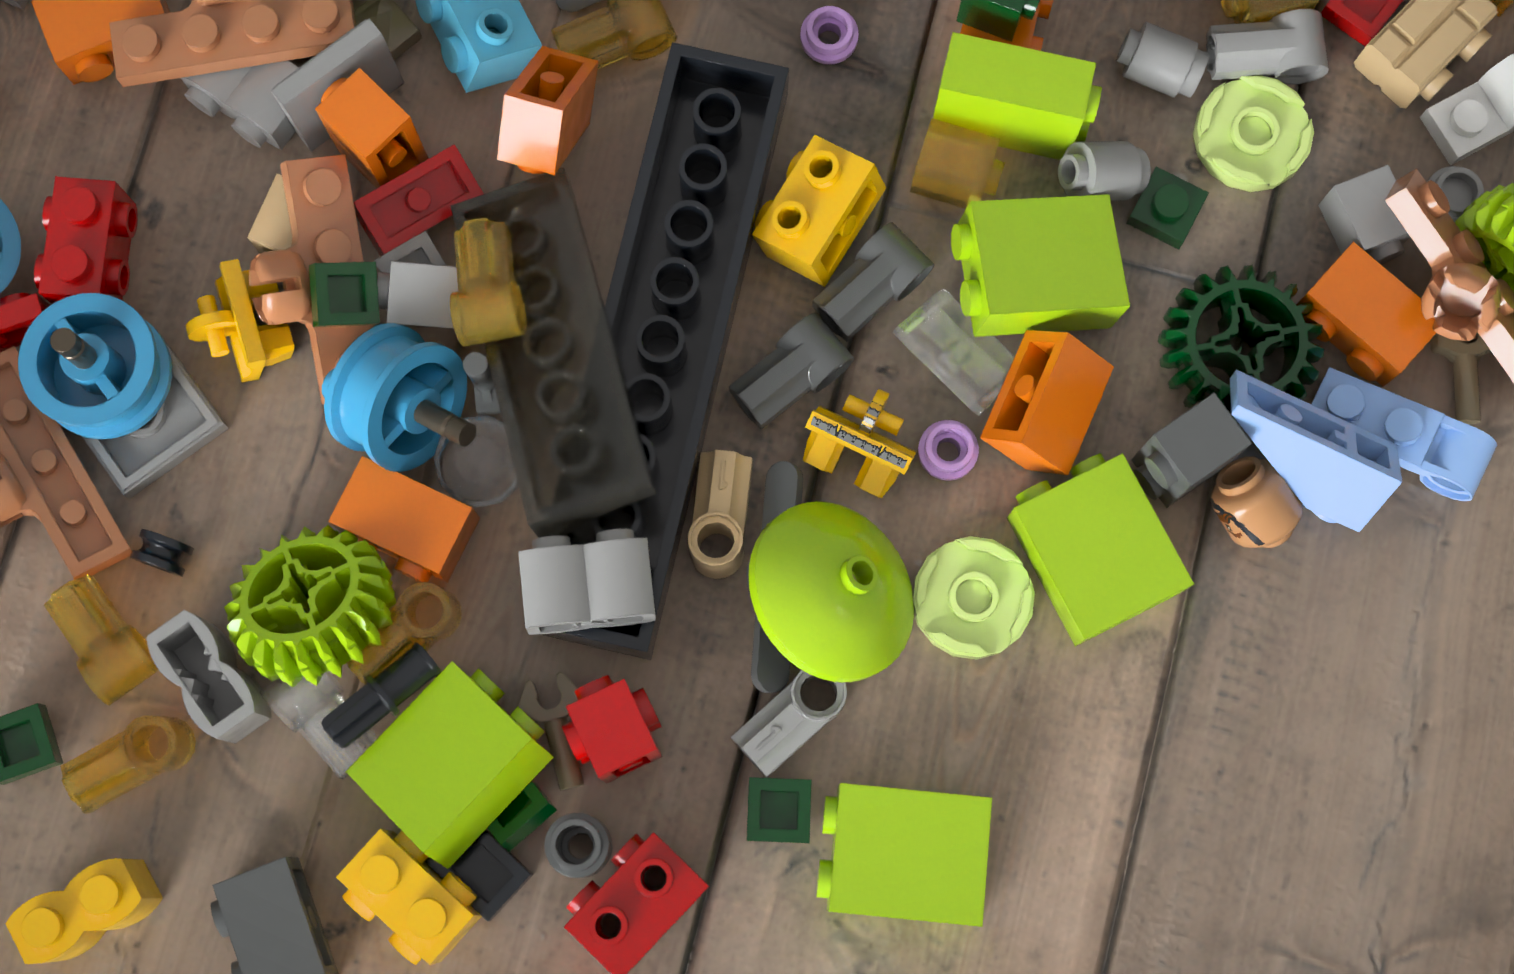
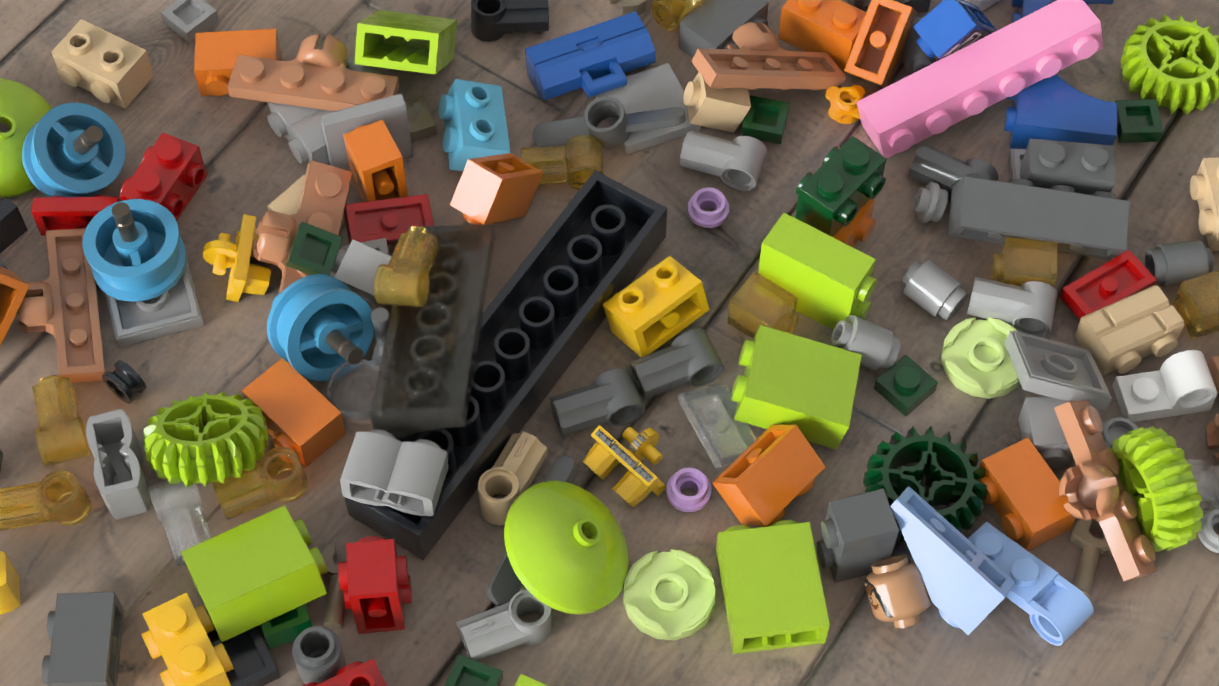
camera: 20 degrees right, 20 degrees down
(380, 696) = (226, 509): black axle -> none
(1359, 132) = (1057, 369): none -> light grey tile

